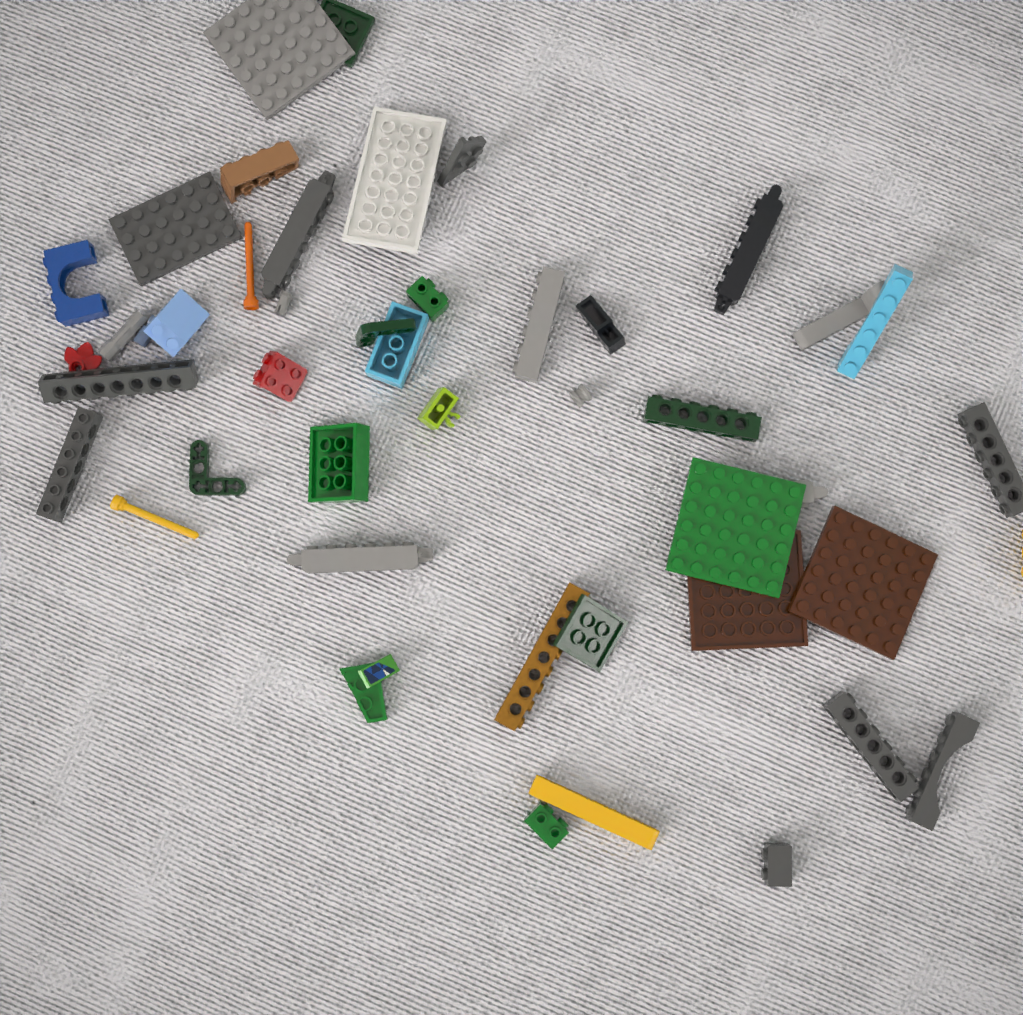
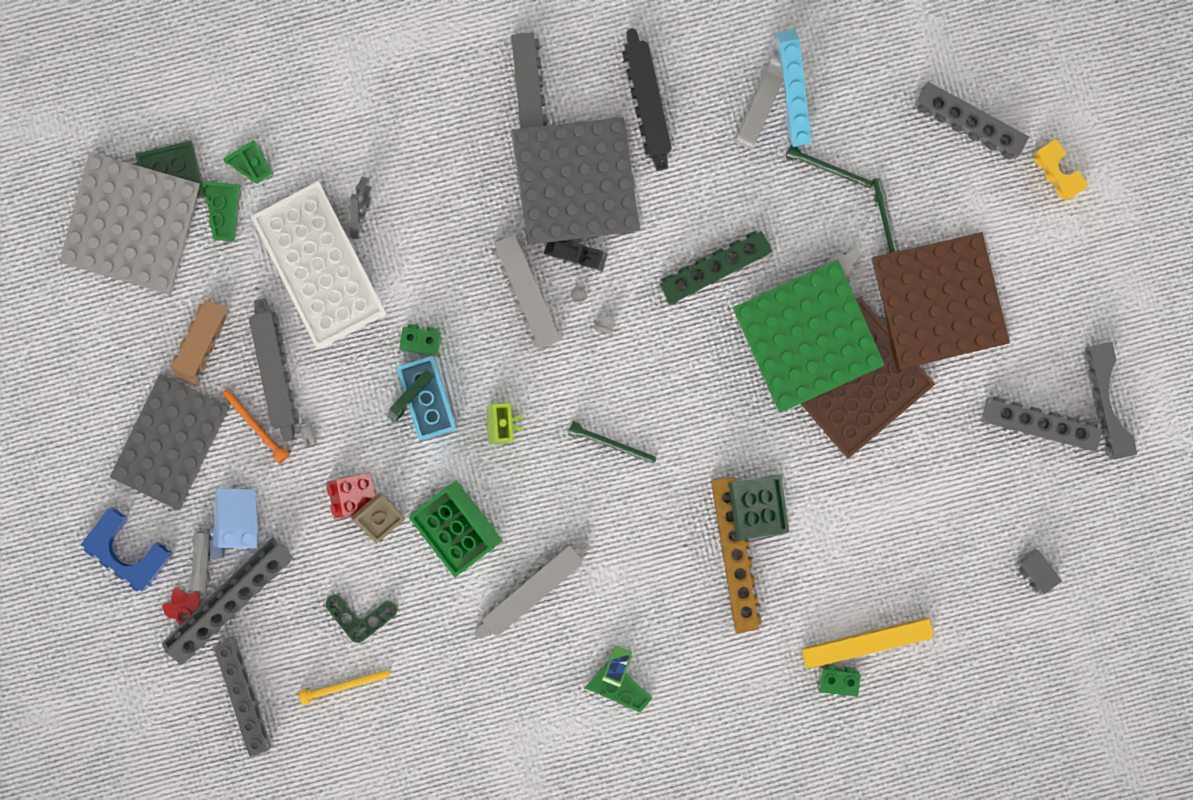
camera: 35 degrees left, 5 degrees up
(285, 408) = (378, 517): none -> dark tan plate
(359, 83) = (223, 209): none -> green wing
(406, 67) = (250, 162): none -> green wing
(494, 461) = (577, 430): none -> dark green piece
(578, 358) = (578, 294): none -> light grey hinge
(644, 267) = (575, 180): none -> dark grey plate
(650, 190) = (528, 81): none -> dark grey brick
(833, 379) = (796, 154): none -> dark green piece
(875, 466) = (880, 197): none -> dark green bar

